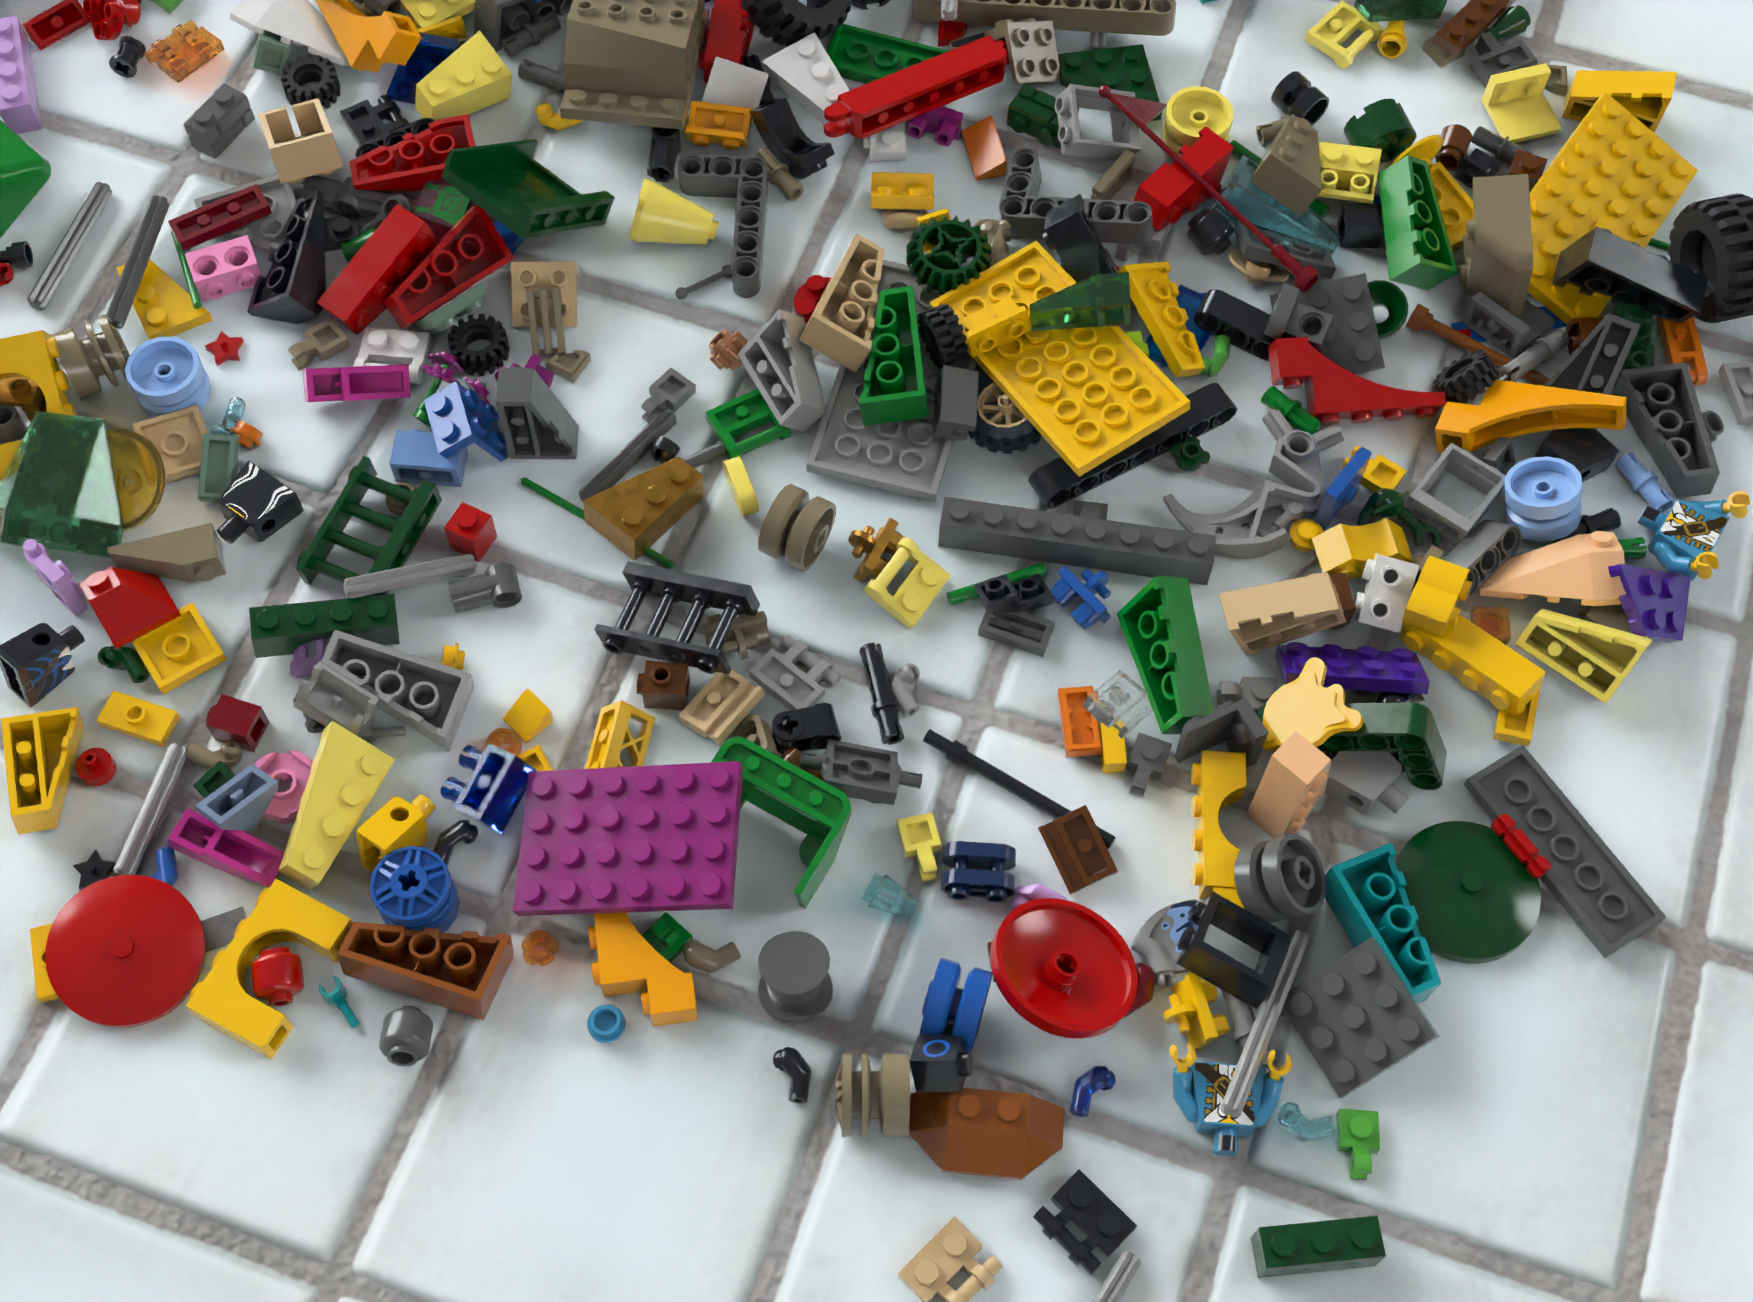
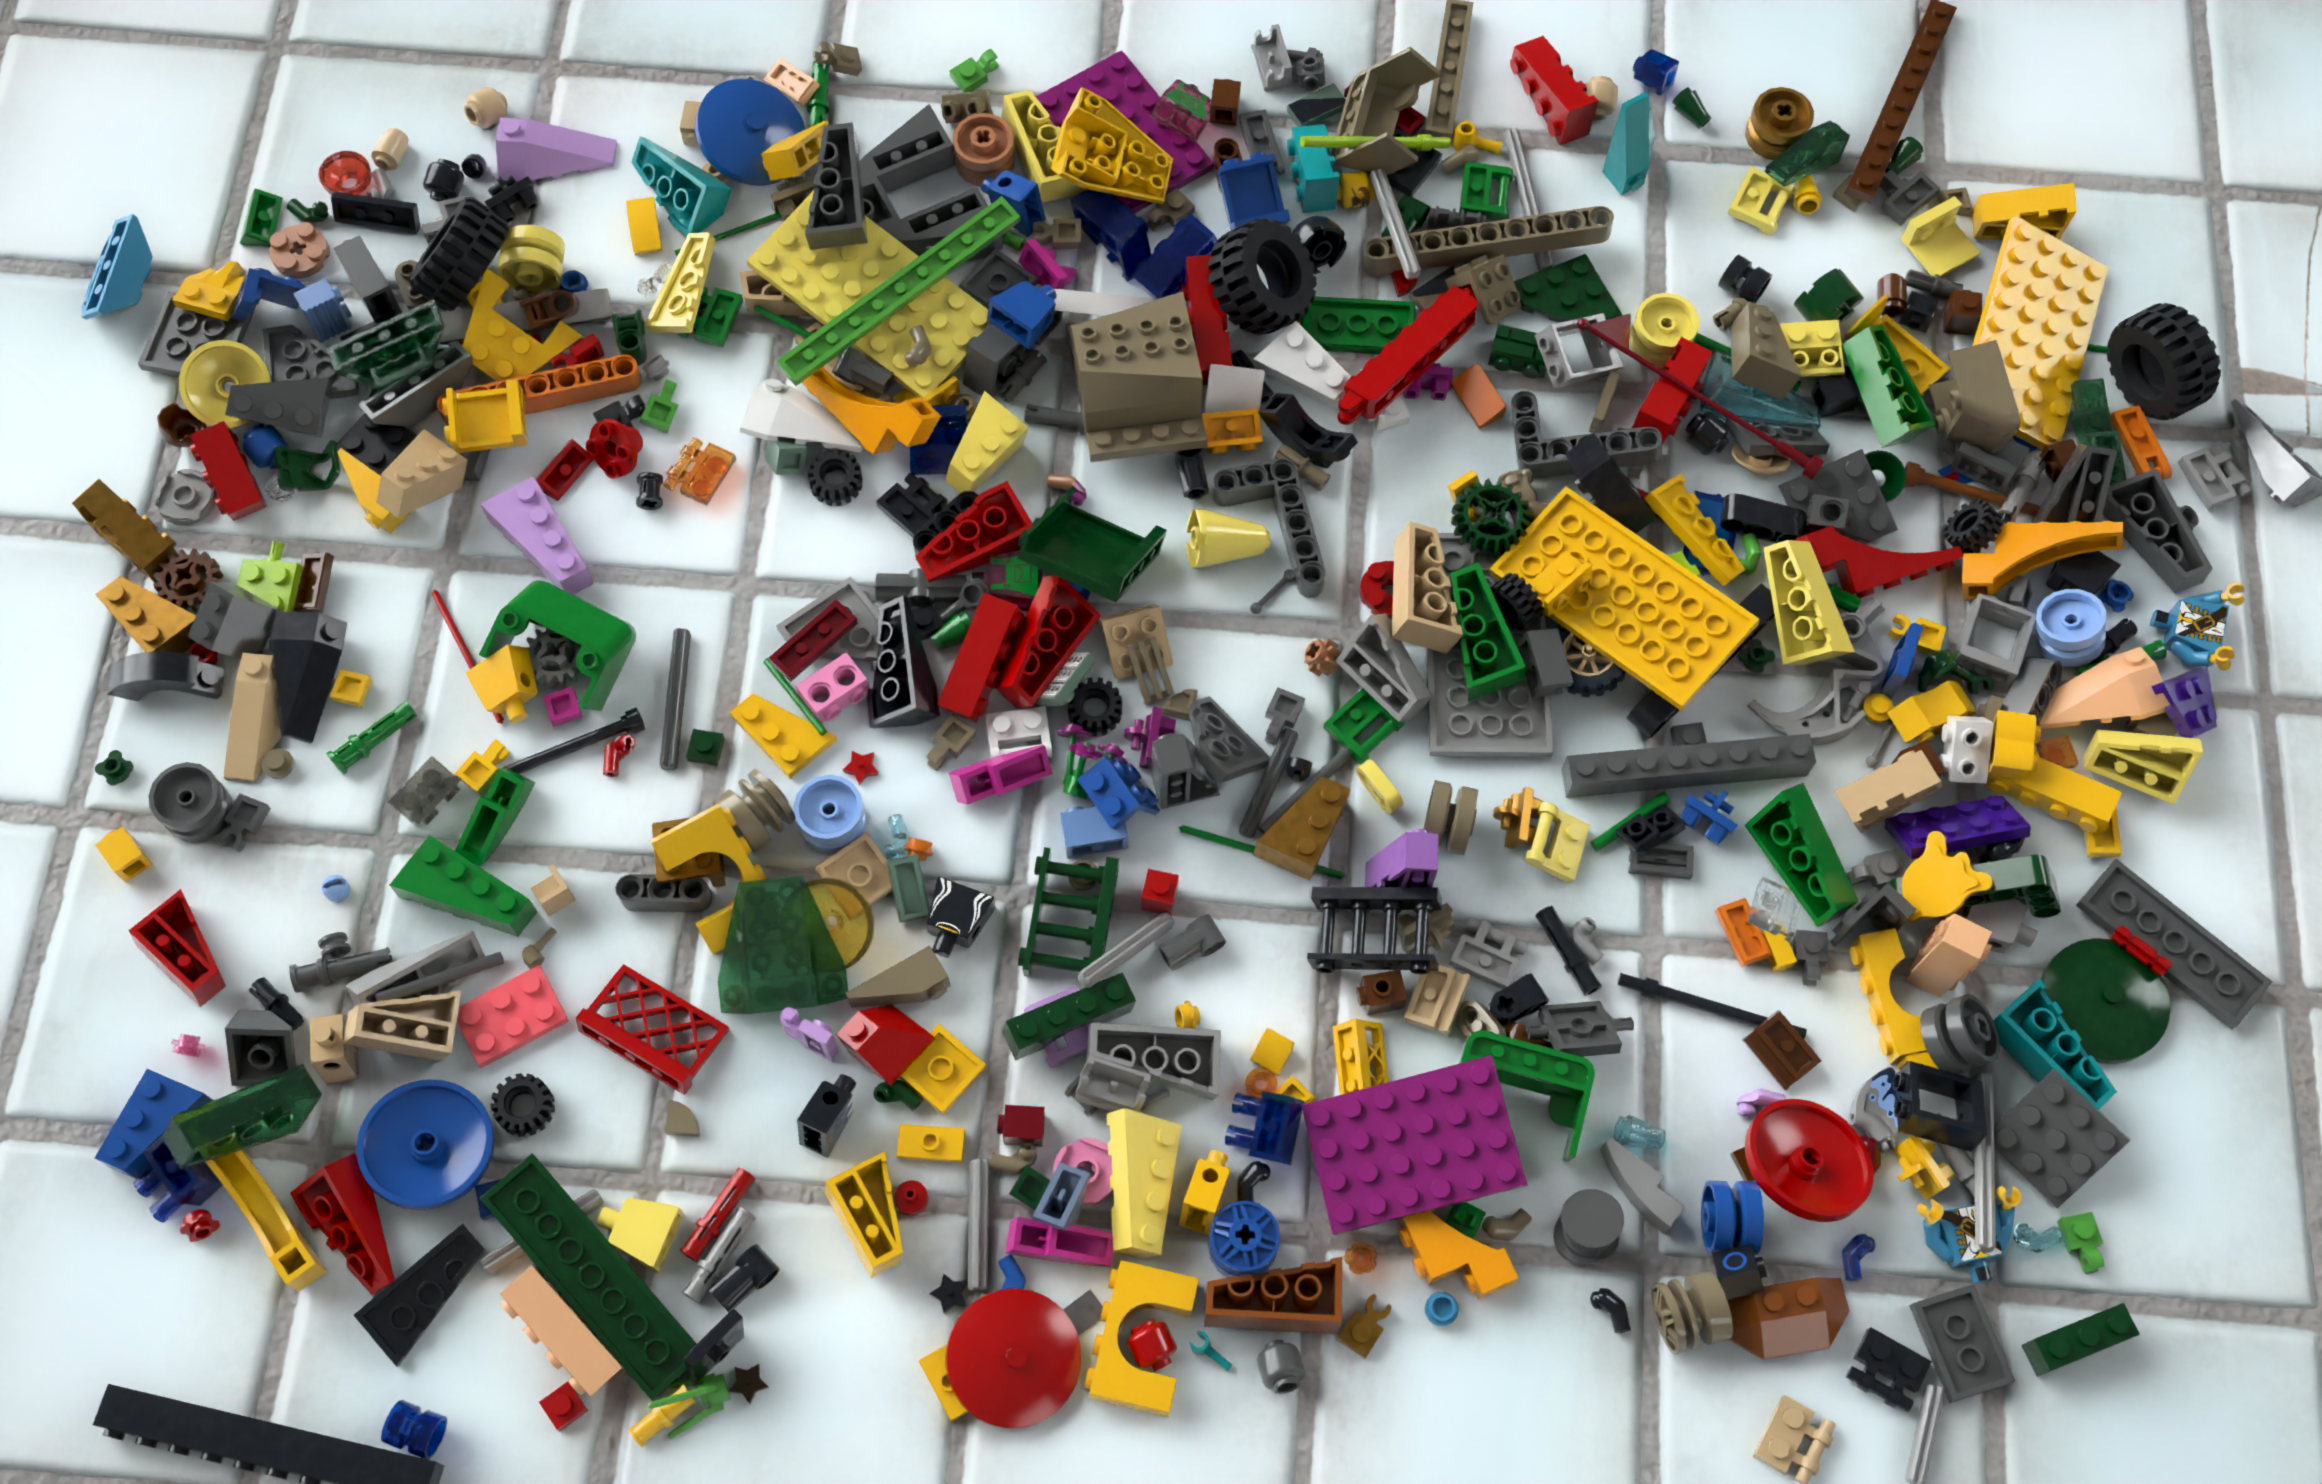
camera: 15 degrees left, 5 degrees up
(80, 295) = (705, 747): none -> dark green plate
(137, 261) = (753, 702): dark grey axle -> none
(219, 121) = (767, 538): dark grey brick -> none
(305, 155) = (867, 552): tan piece -> none
(513, 1024) = (1362, 1330): none -> pearl gold plate
(544, 149) = (1067, 482): none -> arm
(553, 120) = (1073, 459): yellow arm -> none
(590, 404) = (1222, 744): none -> dark grey plate
(736, 554) = (1405, 862): none -> medium lavender wedge
(873, 953) = (1640, 1184): none -> light grey slope
(898, 220) = (1436, 485): tan arm -> none
(902, 190) = (1422, 460): yellow bracket -> none
(920, 839) = (1646, 1075): light yellow plate -> none
(964, 883) = (1695, 1106): dark blue brick -> none
(1089, 303) = (1645, 542): clear green slope -> none
(1179, 1215) = (1962, 1343): none -> dark grey plate
(1251, 410) = (1803, 606): none -> light yellow wedge
(1281, 311) = (1800, 503): dark grey beam -> none
(1611, 477) = (2118, 588): none -> blue plate
(1631, 276) = (2089, 398): black wedge -> none
(1644, 482) = (2146, 586): light blue pin -> none

